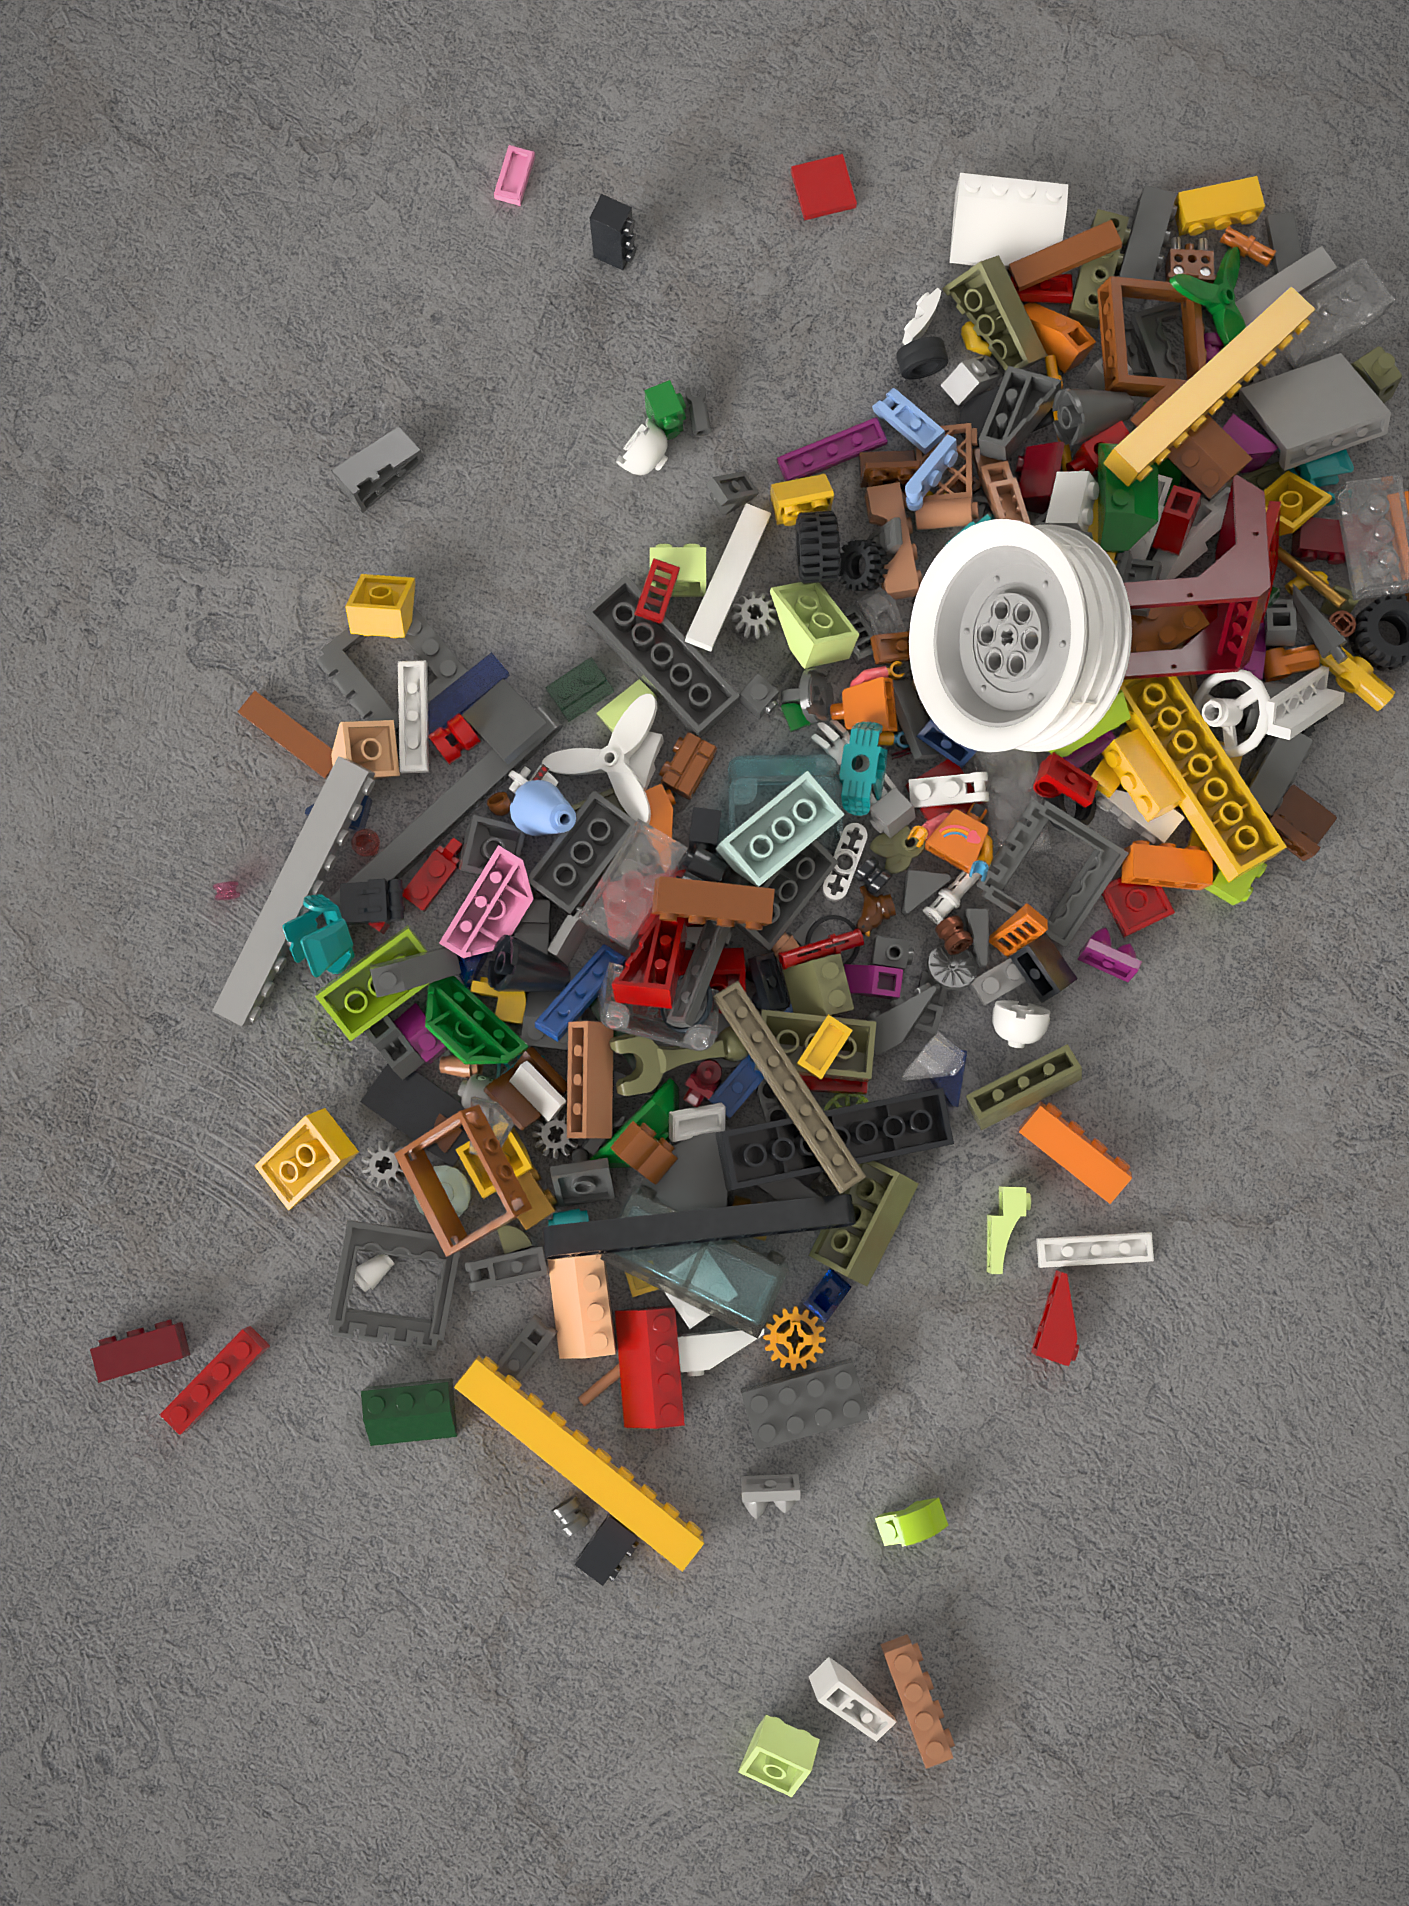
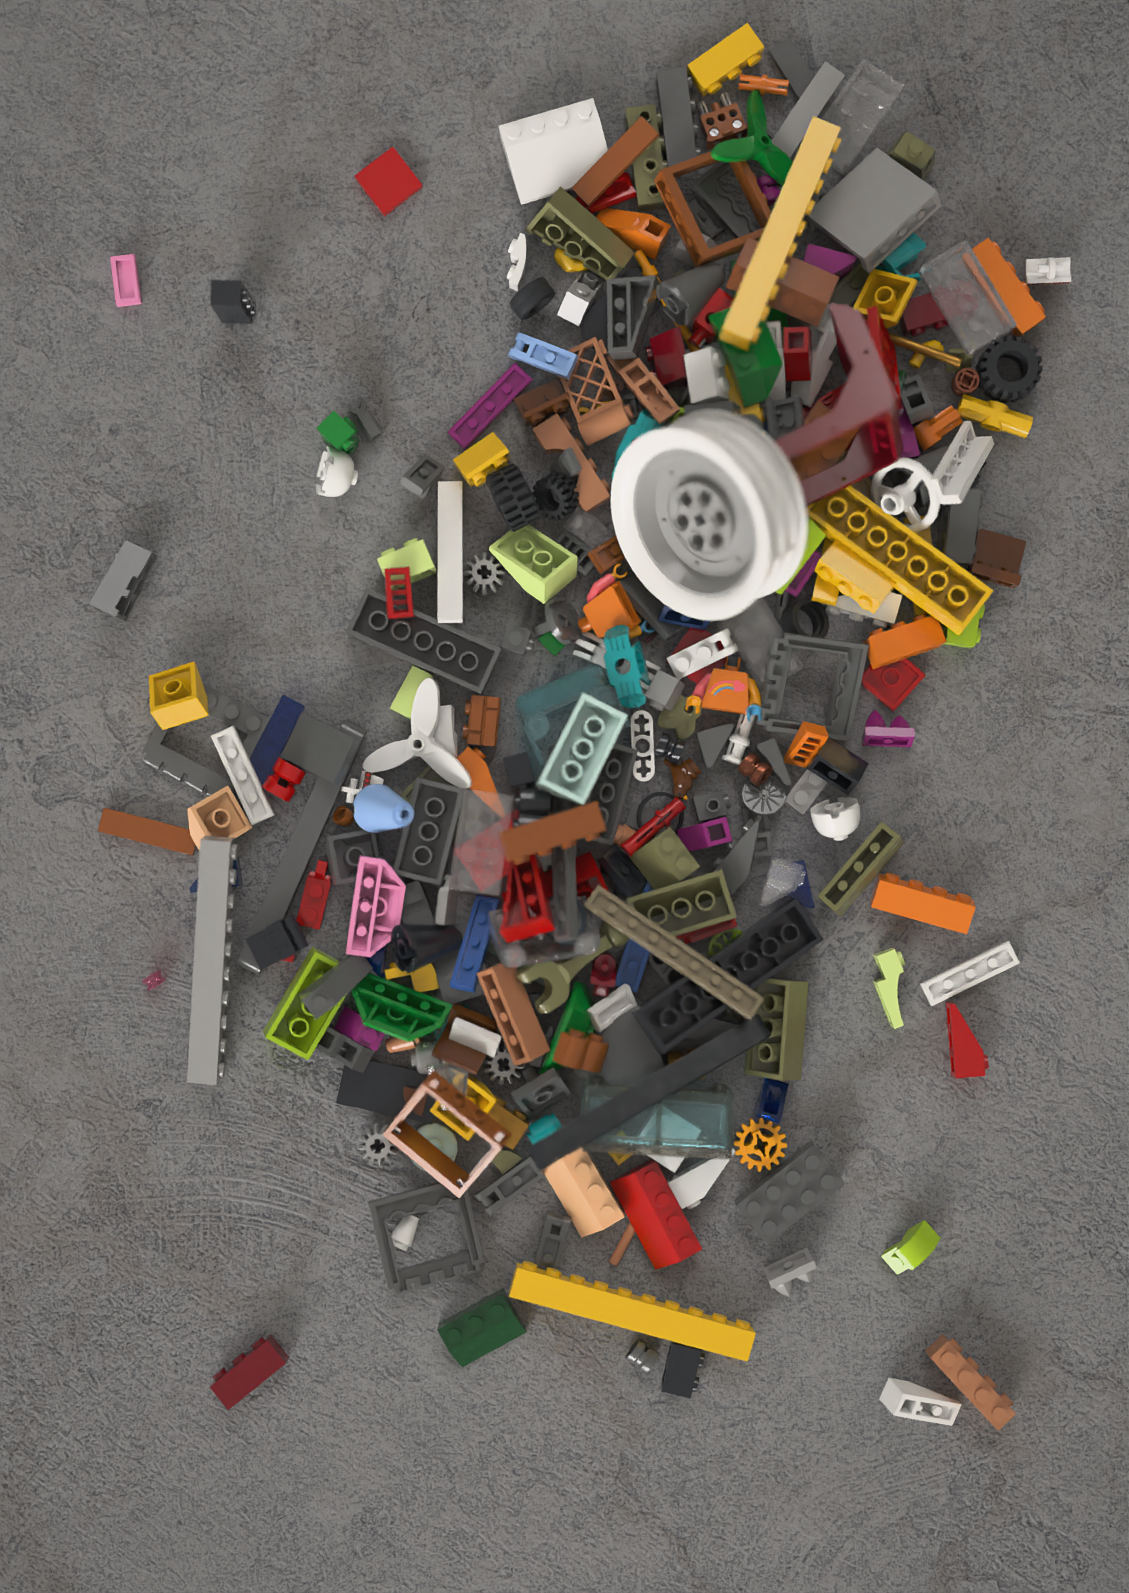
camera: 20 degrees left, 5 degrees up
(214, 1380) = (318, 1369): red arch -> none
(306, 1157) = (313, 1165): yellow slope -> none
(324, 947) = (254, 994): teal piece -> none
(362, 838) = (244, 896): clear red cone -> none
(579, 689) = (367, 694): clear green plate -> none
(779, 1755) = (881, 1467): yellowish green slope -> none
(824, 1047) = (689, 908): yellow tile -> none
(931, 472) = (580, 396): light blue plate -> none
(1061, 776) = (789, 607): red plate -> none
(1321, 630) = (956, 395): dark grey bar -> none

